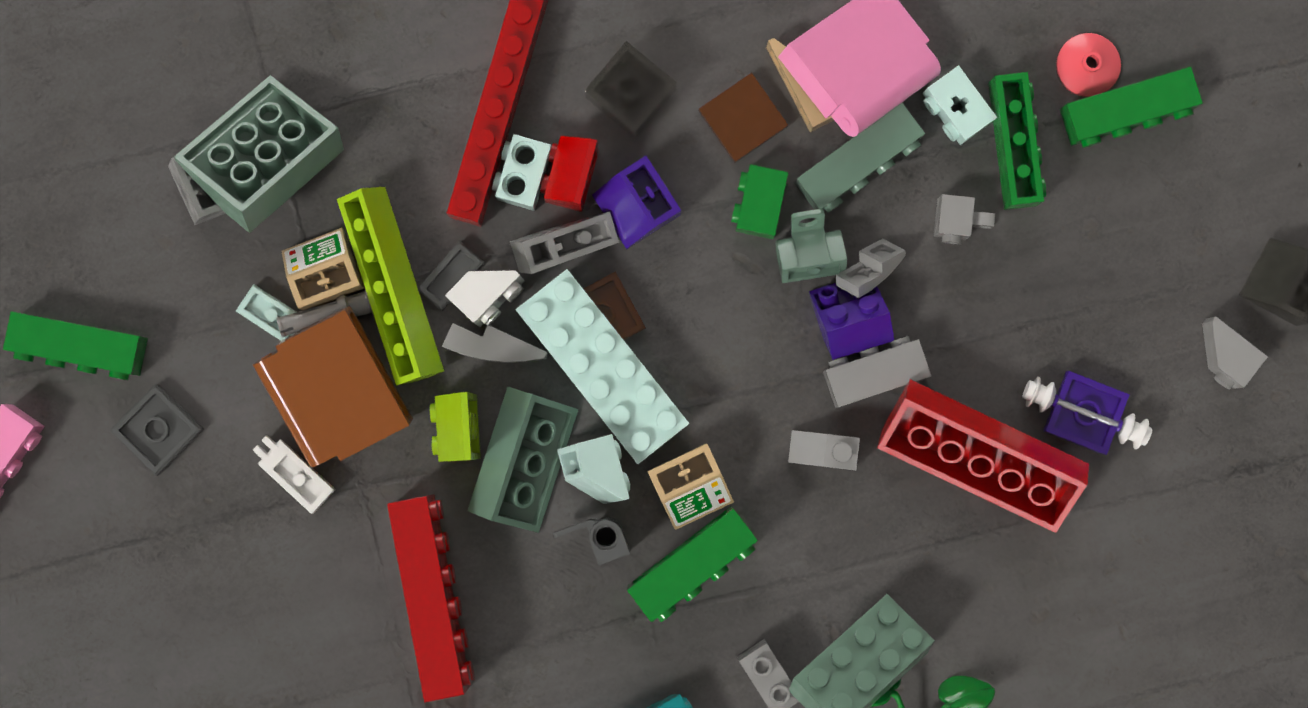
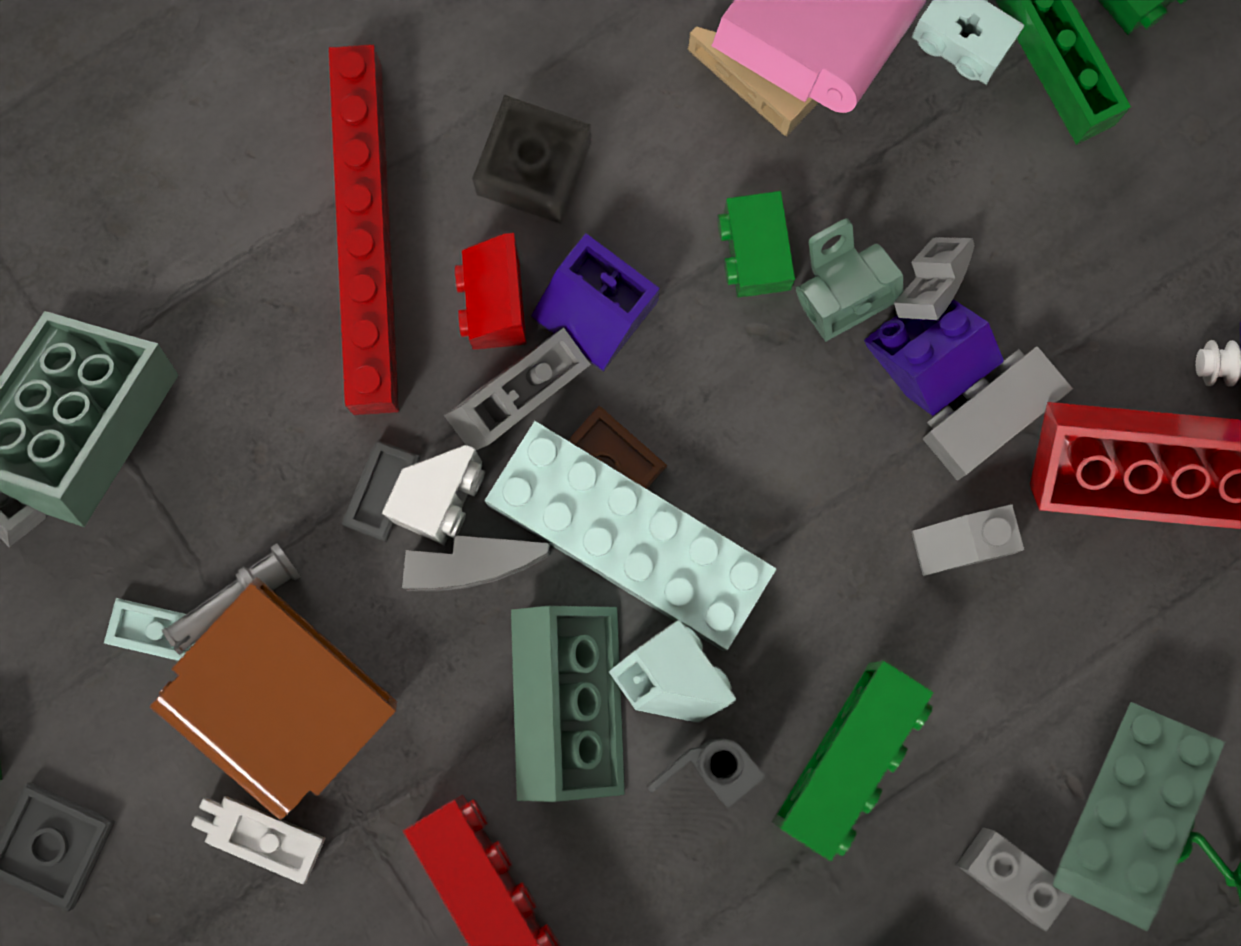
camera: 20 degrees left, 5 degrees down
(321, 270) = (203, 545): tan slope -> none
(390, 285) = (303, 531): lime brick -> none
(456, 427) = (460, 689): lime slope -> none
(529, 173) = (436, 317): light aqua brick -> none
(690, 486) = (808, 653): tan slope -> none
(743, 117) = (692, 147): reddish brown tile -> none
(860, 158) = (866, 141): sand green brick -> none
(956, 218) = (1022, 175): light grey brick -> none

